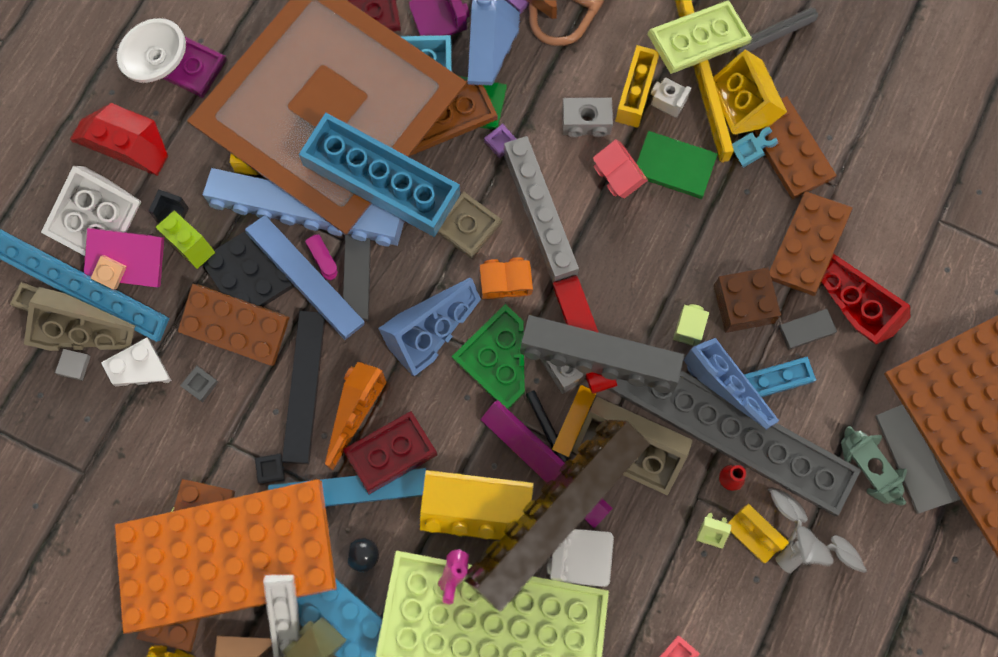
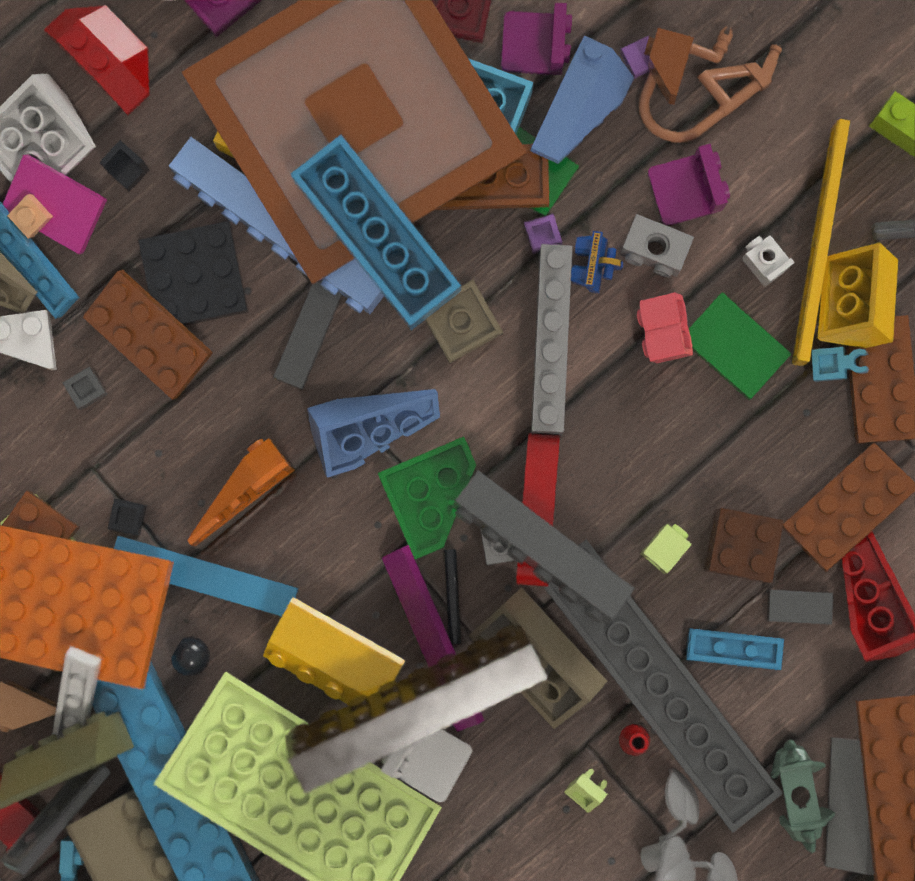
camera: 25 degrees right, 10 degrees up
(185, 239) = (129, 212): lime brick -> none
(304, 388) = (200, 438): black tile -> none
(305, 277) = (248, 311): medium blue tile -> none
(322, 257) = (278, 293): dark pink bar -> none
(390, 452) = (265, 554): dark red tile -> none
(453, 574) = (275, 726): dark pink piece -> none
(505, 279) = (477, 406): orange brick -> none
(543, 135) = (595, 249): none -> blue hips
(574, 421) = (484, 603): light orange sticker -> none
(593, 67) = (689, 187): none -> magenta bracket
(637, 86) = (731, 233): yellow brick -> none
(699, 36) = (833, 202): yellowish green tile -> none
(720, 373) = (674, 624): medium blue wedge -> none
(756, 533) = (630, 814): yellow bracket -> none

